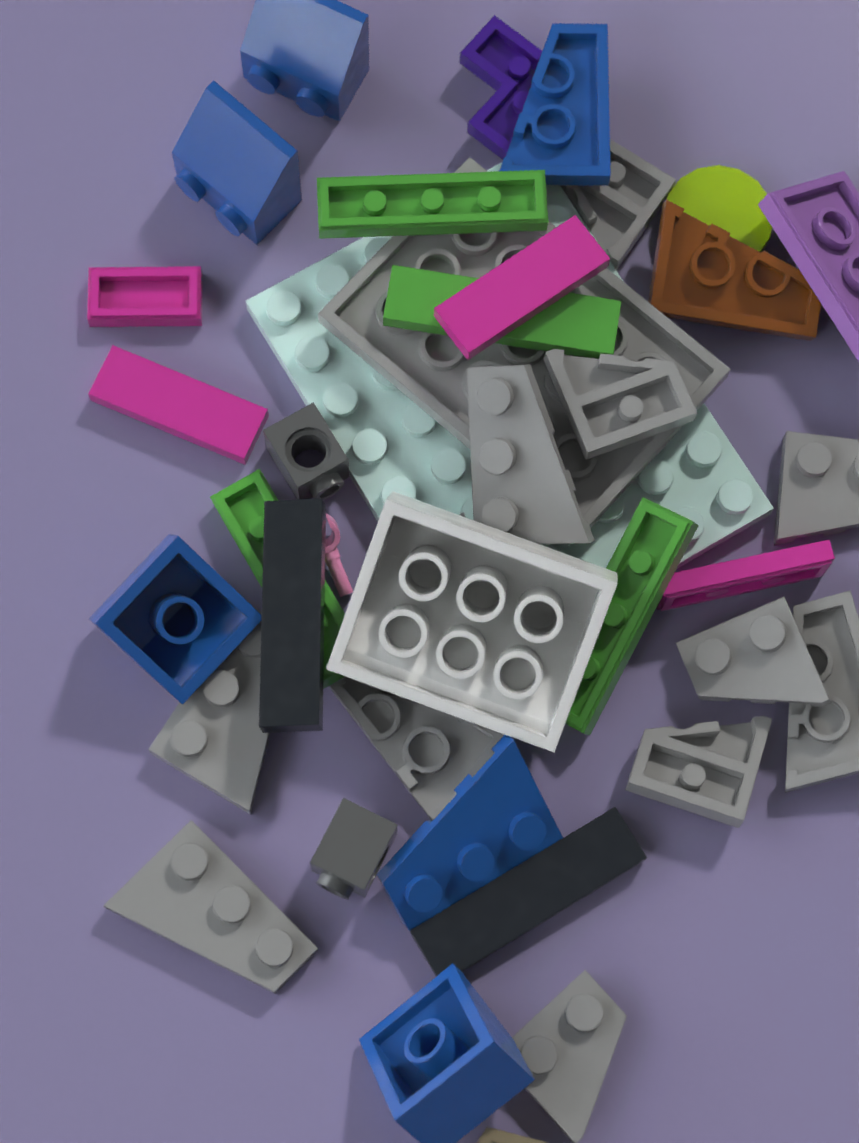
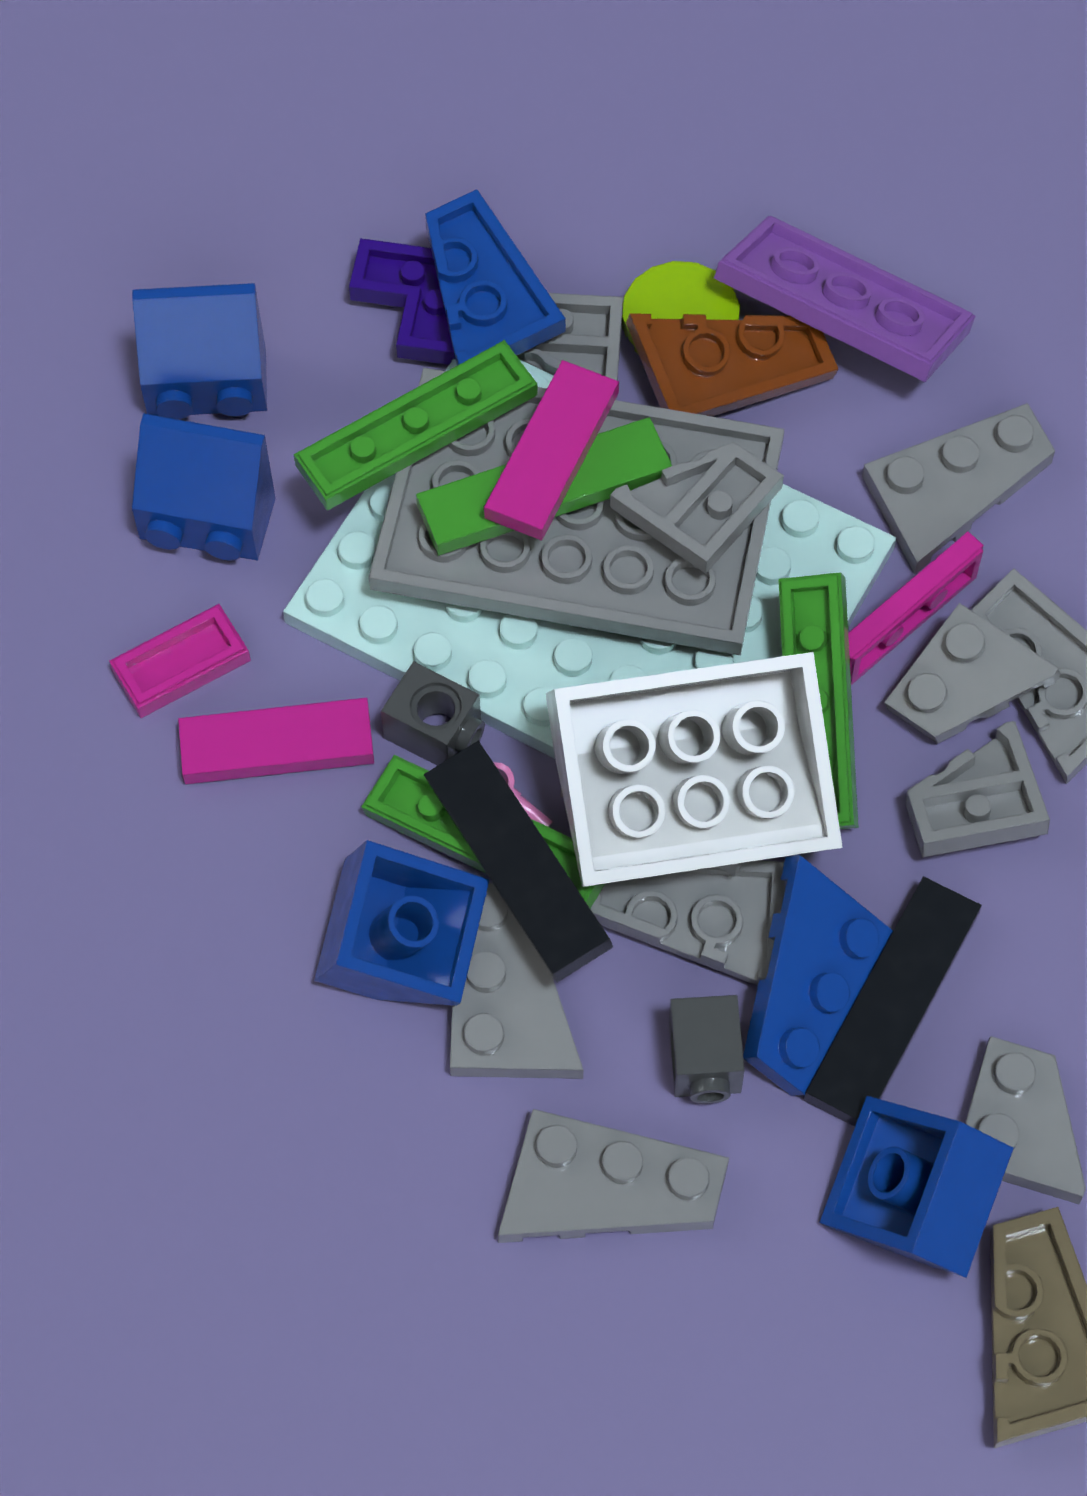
camera: 25 degrees left, 10 degrees down
(516, 462) = (643, 604): light grey wing -> none

